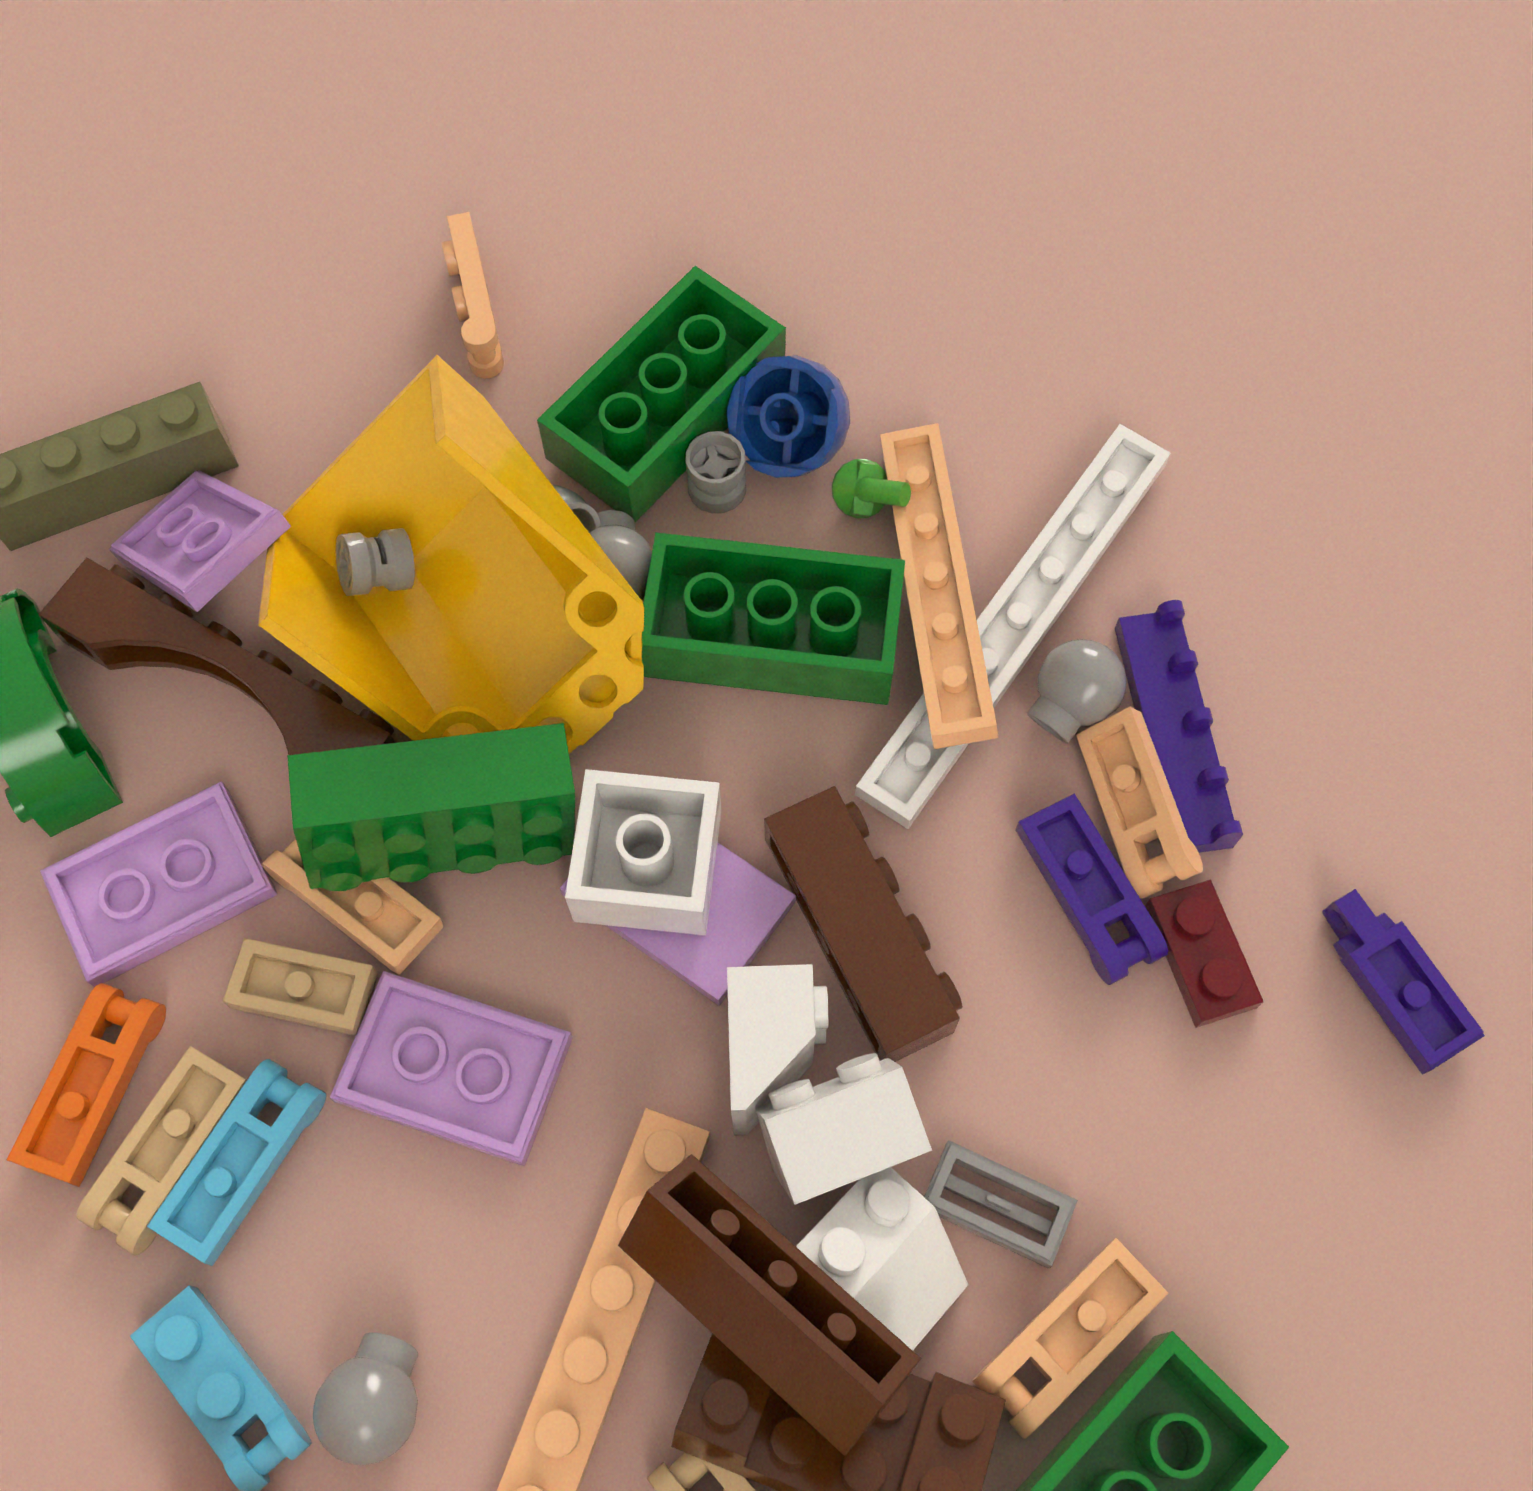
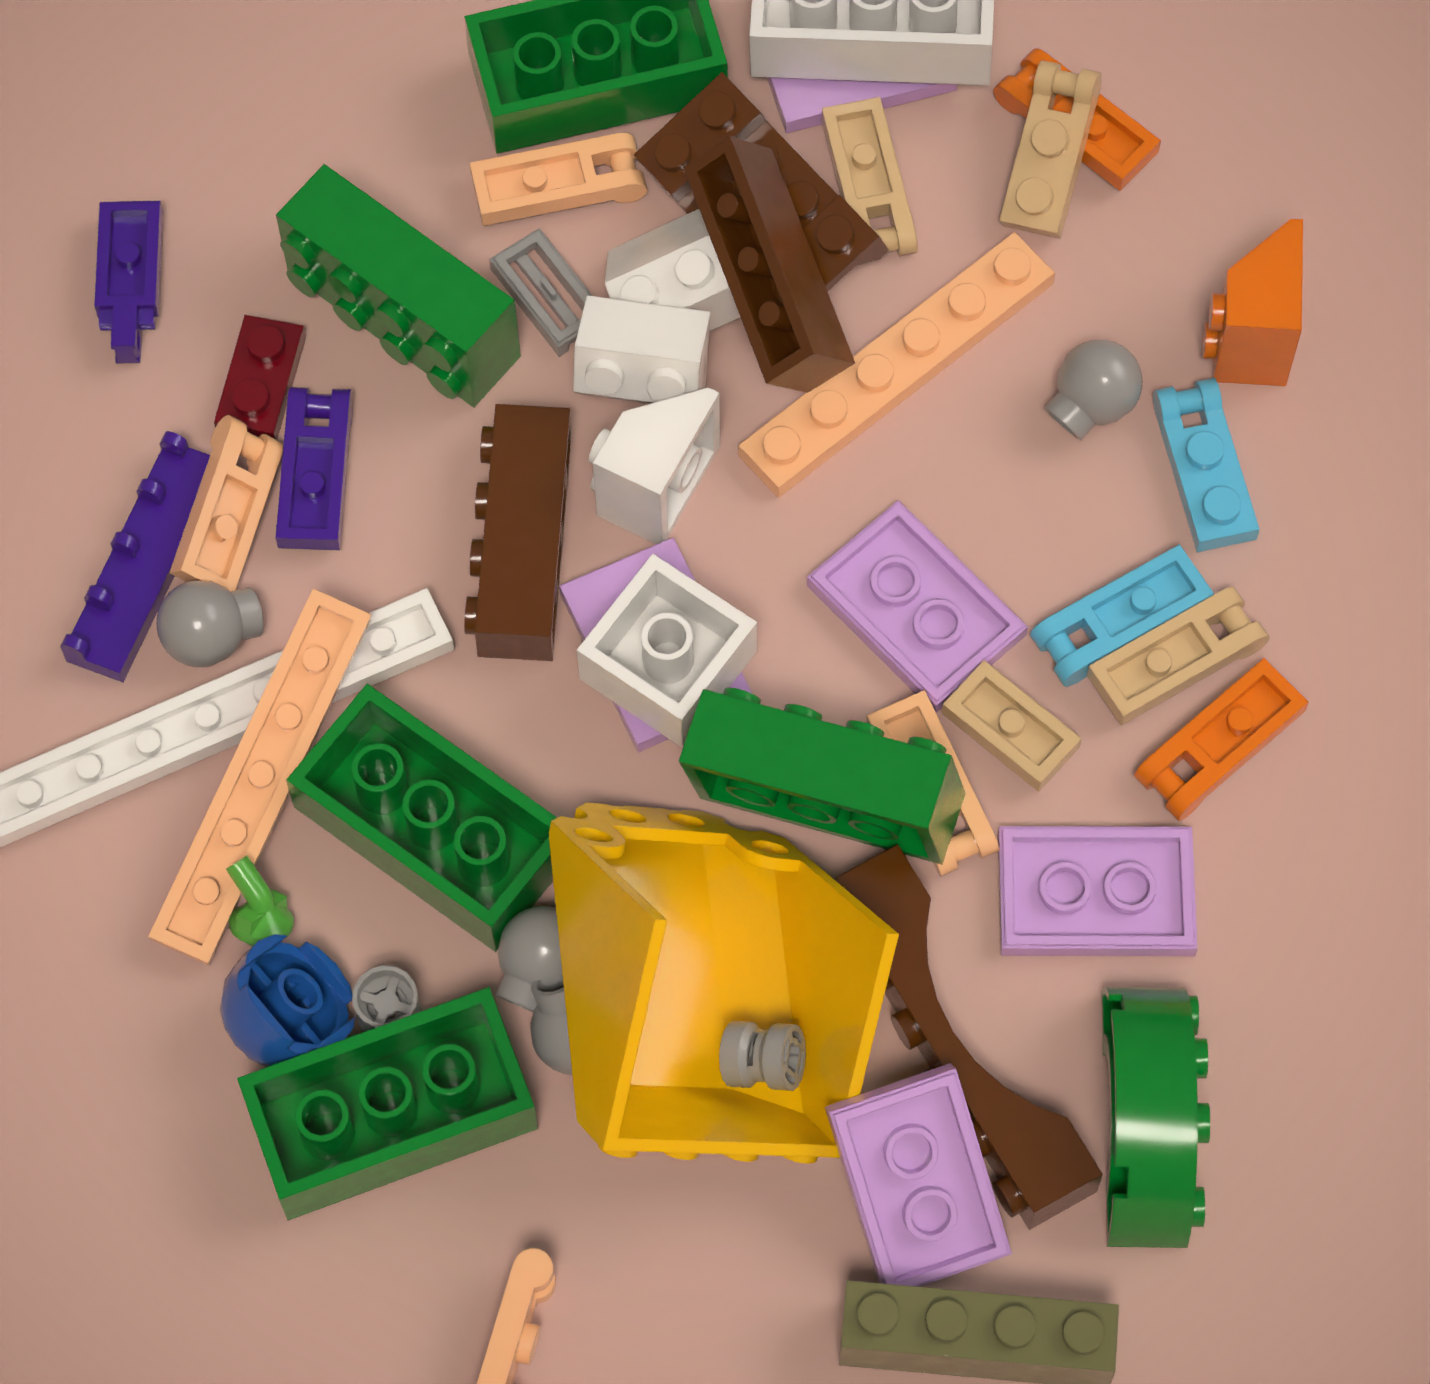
camera: 150 degrees left, 0 degrees up
(1141, 1087) = (398, 287): none -> green brick

